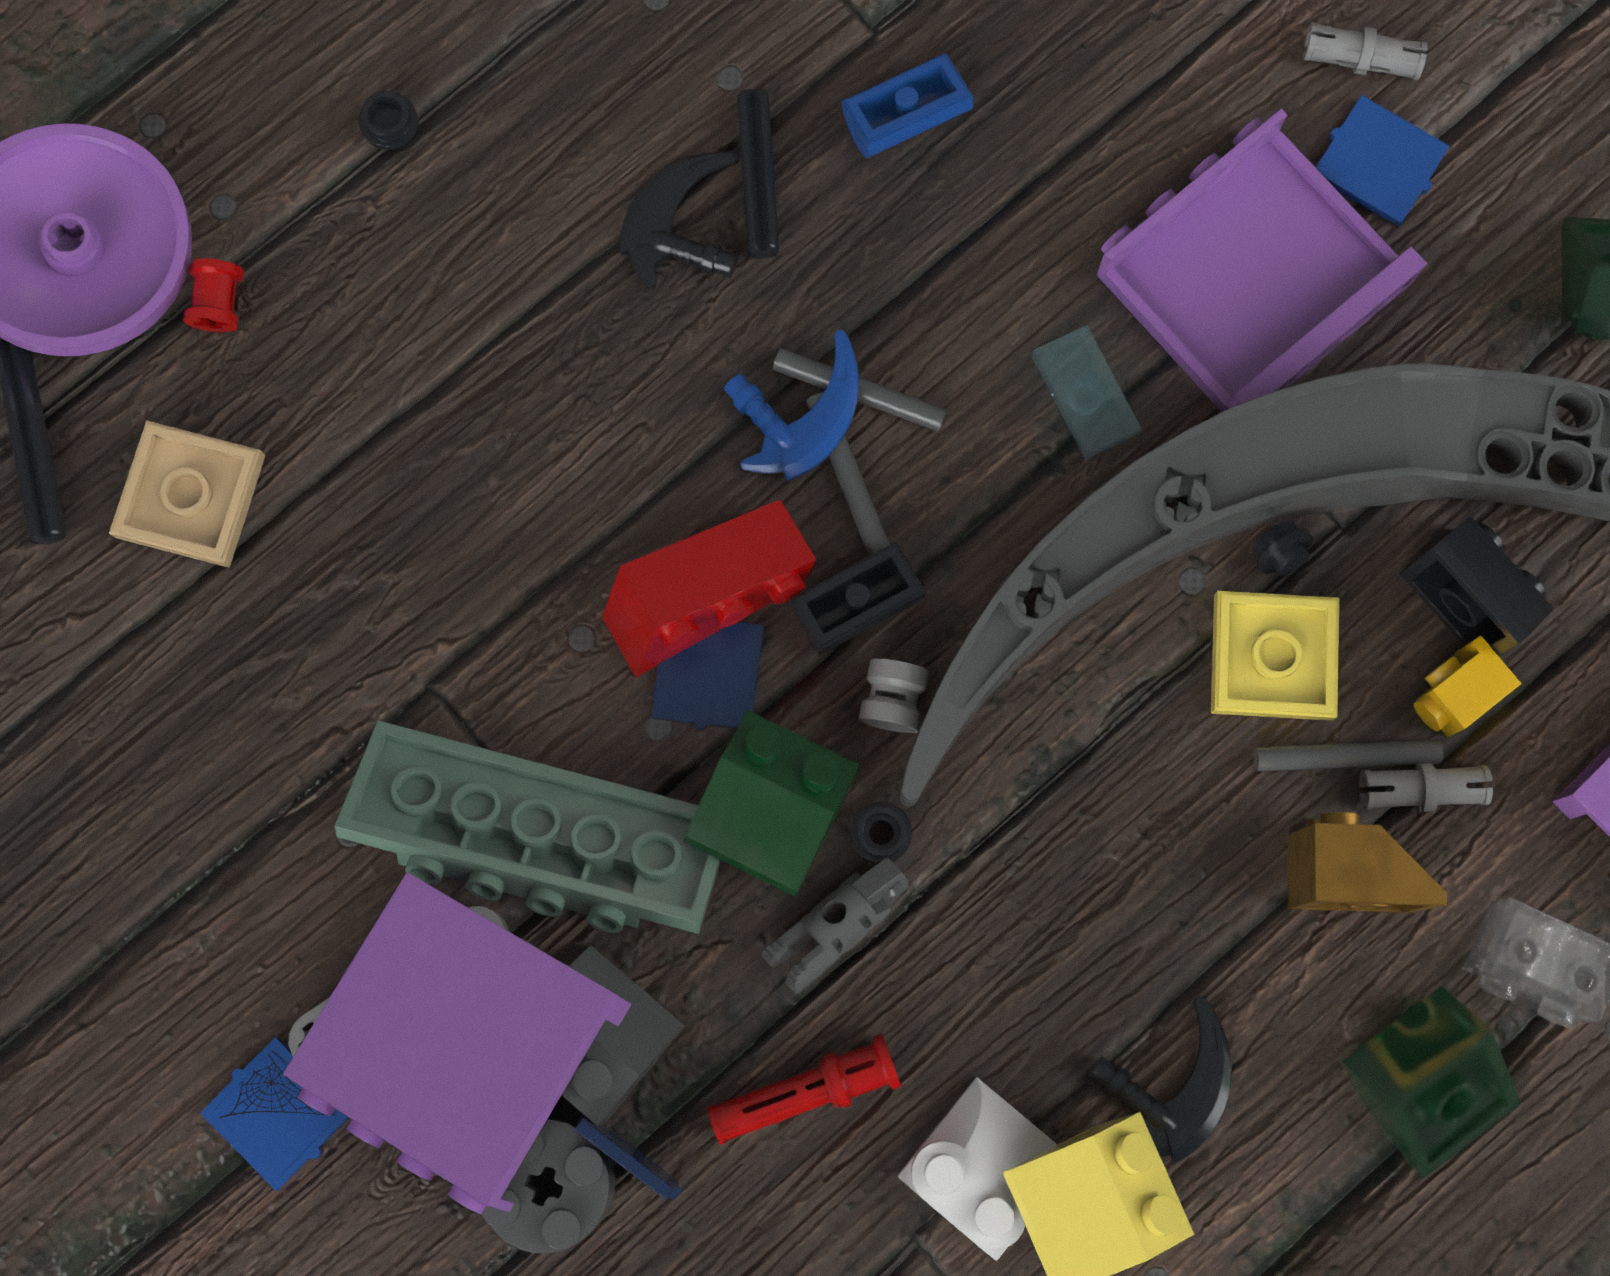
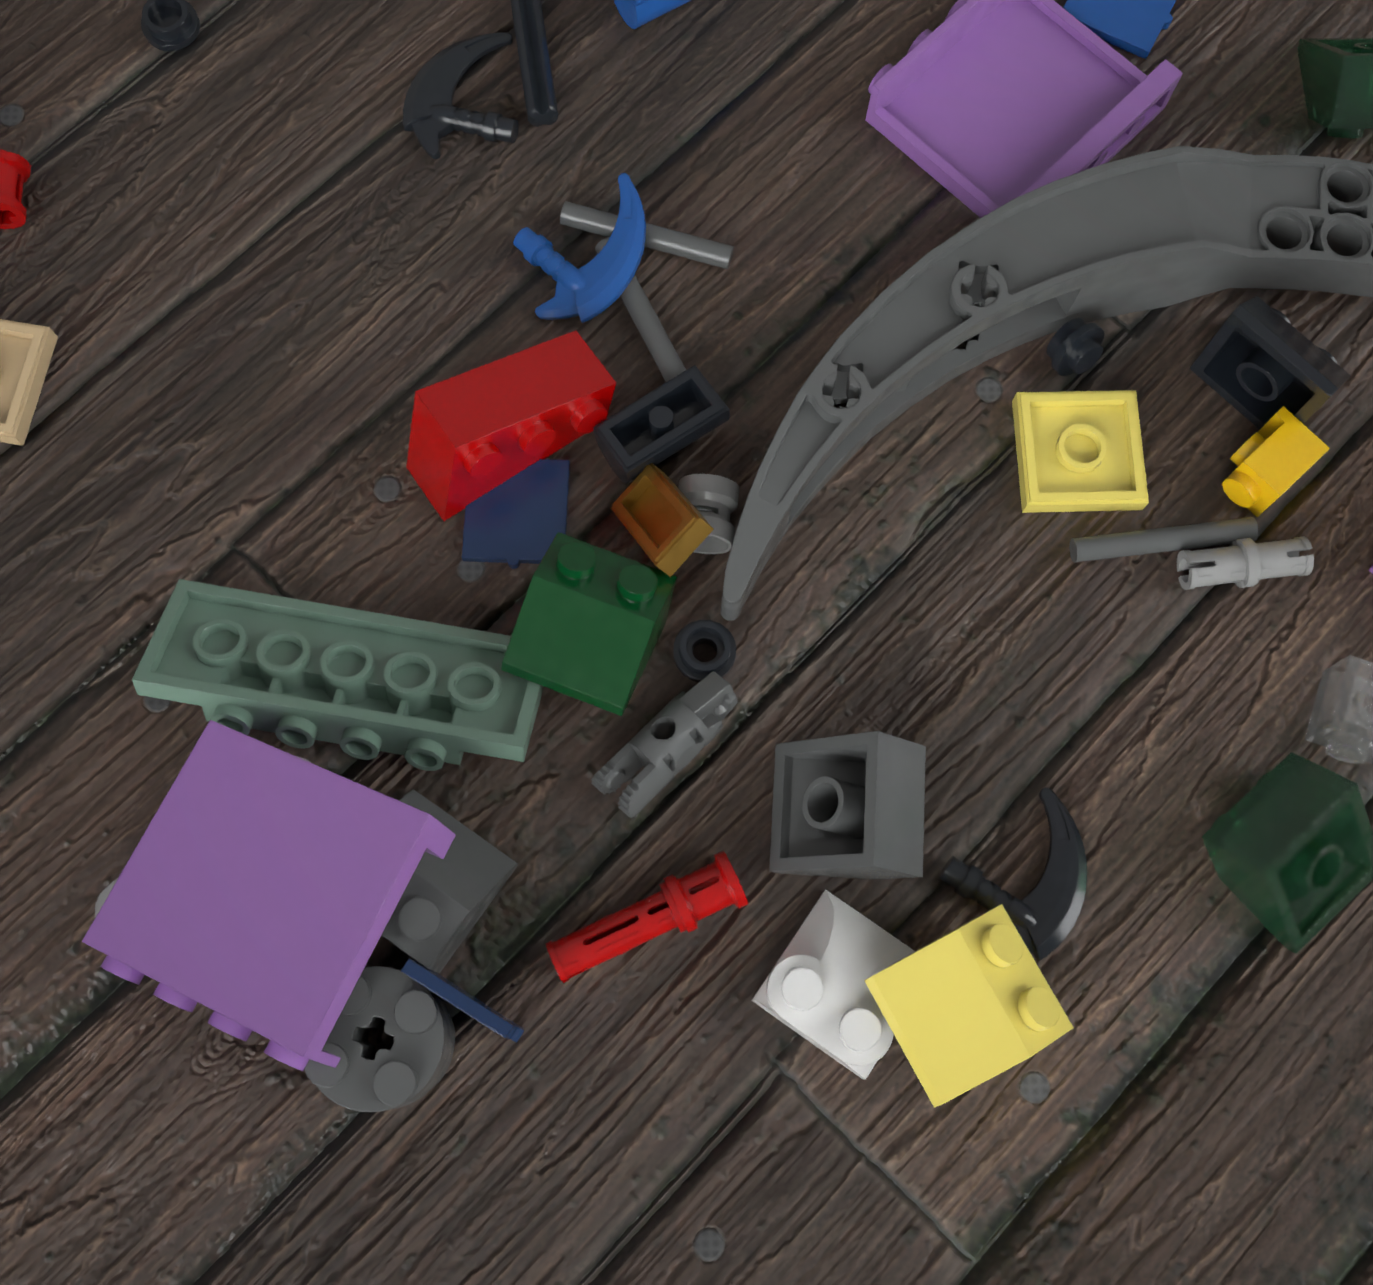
camera: 10 degrees left, 5 degrees down
(268, 1120) = (80, 1003): blue piece -> none
(849, 702) = (661, 519): none -> pearl gold tile
(1006, 1002) = (849, 807): none -> dark grey slope
(1086, 392) = (867, 219): clear light blue plate -> none
(1355, 868) = (1194, 640): pearl gold slope -> none

